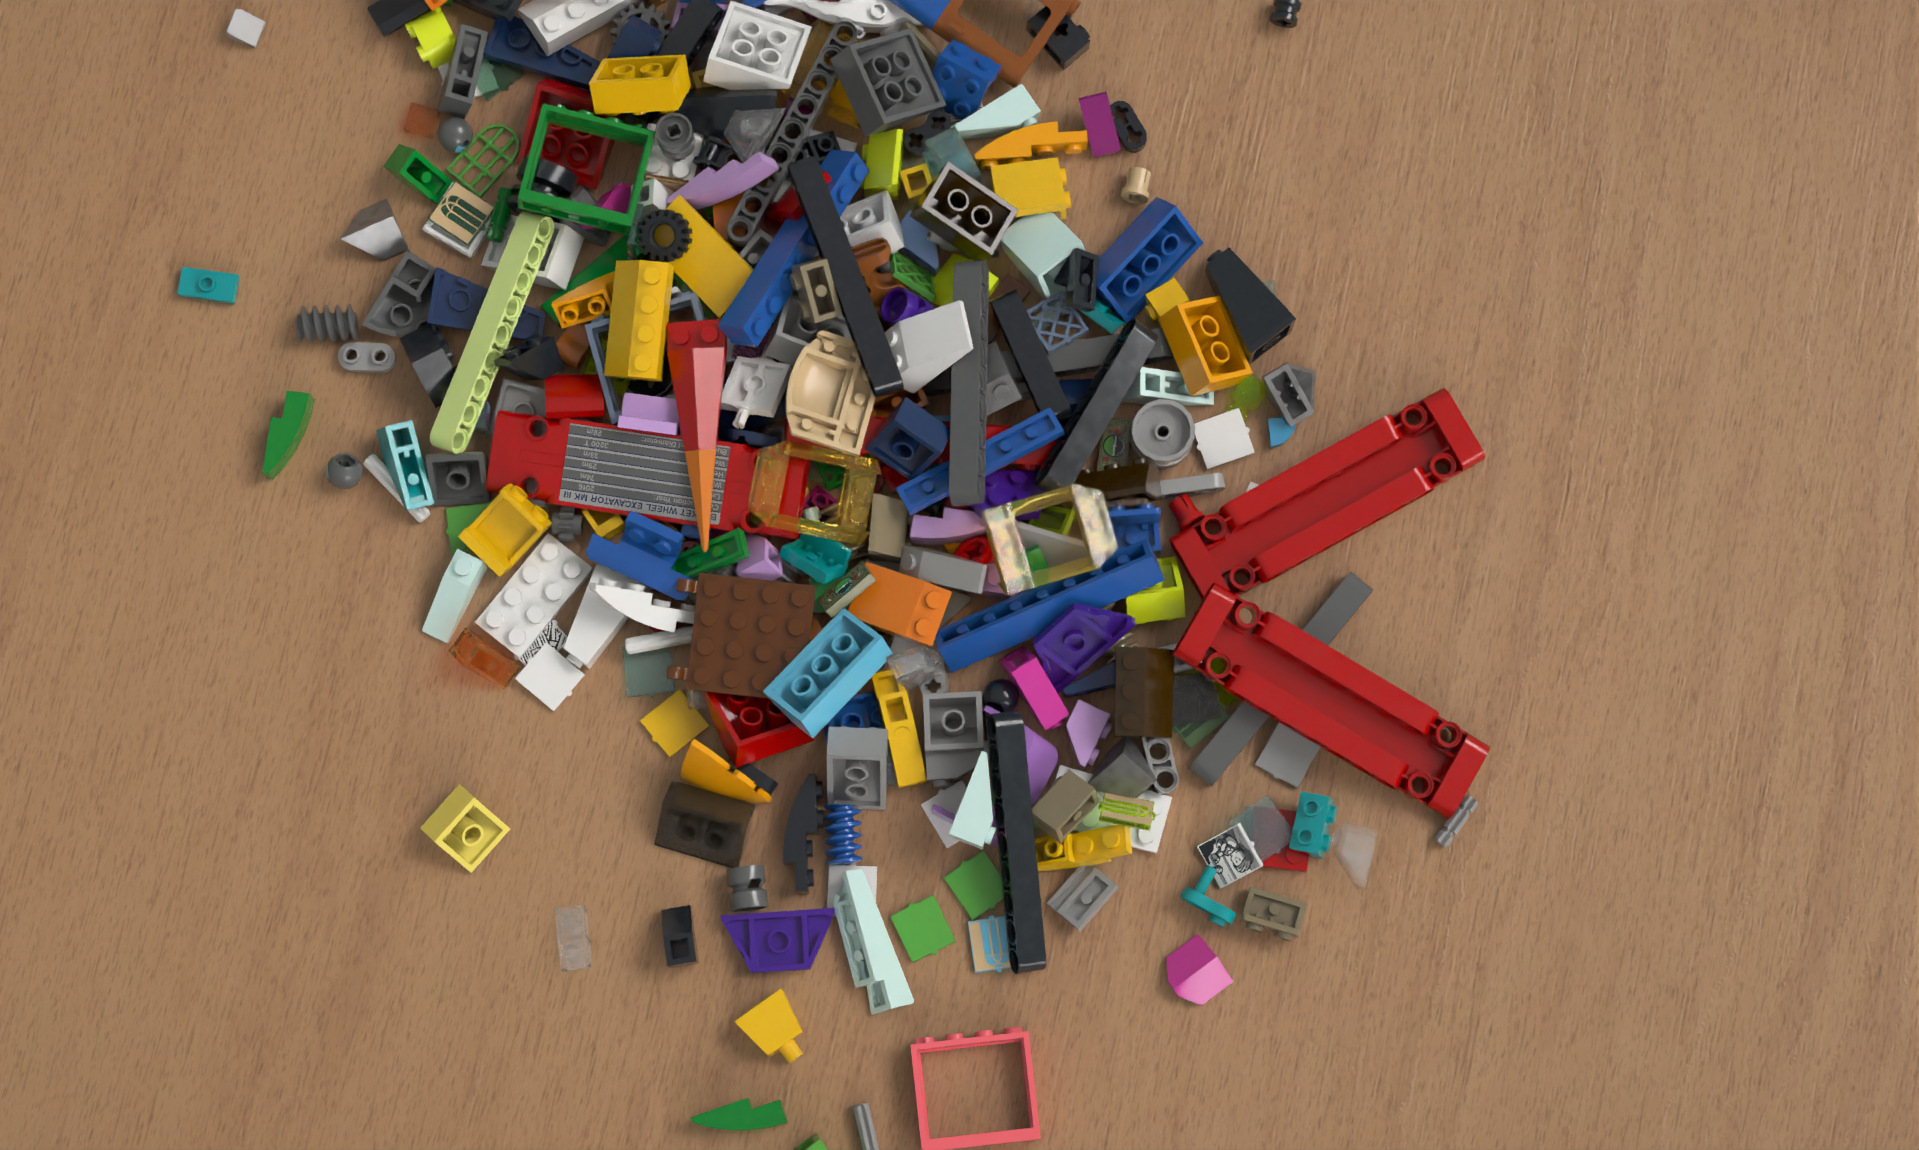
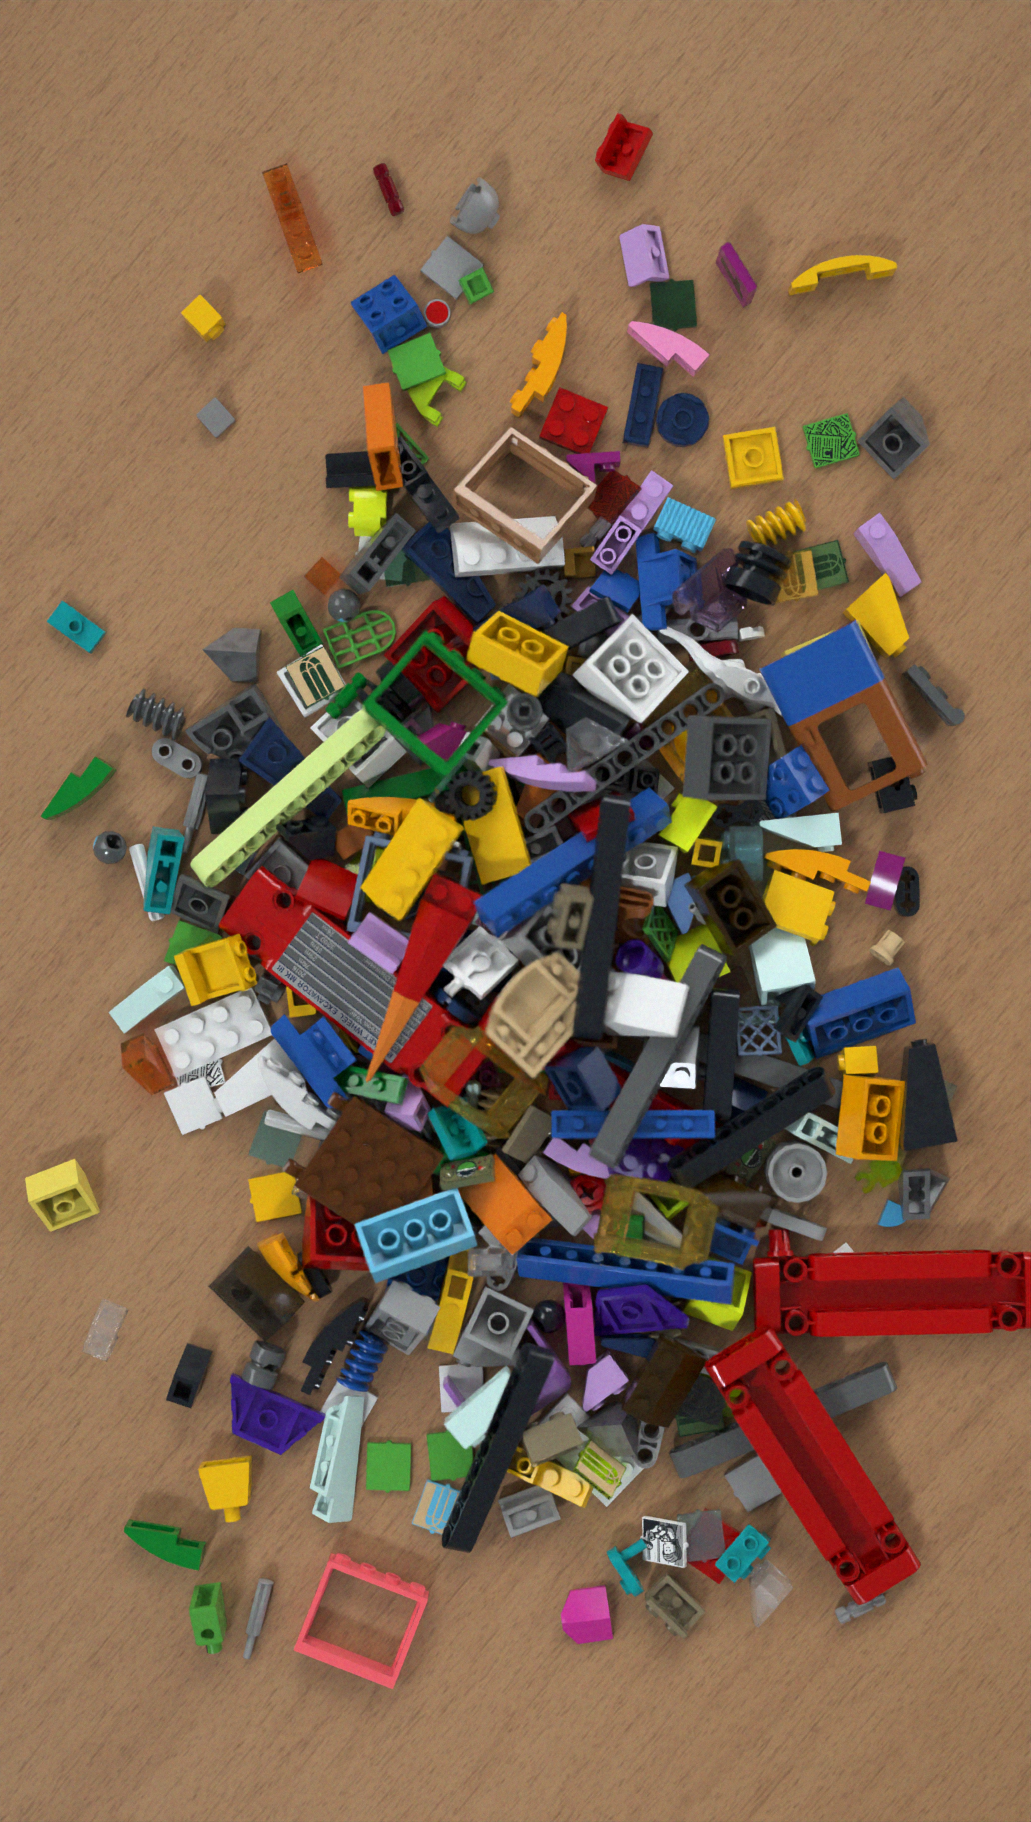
camera: 30 degrees right, 10 degrees up
(408, 392) = (195, 809): none -> light grey axle
(1223, 438) = (843, 1197): white piece -> none

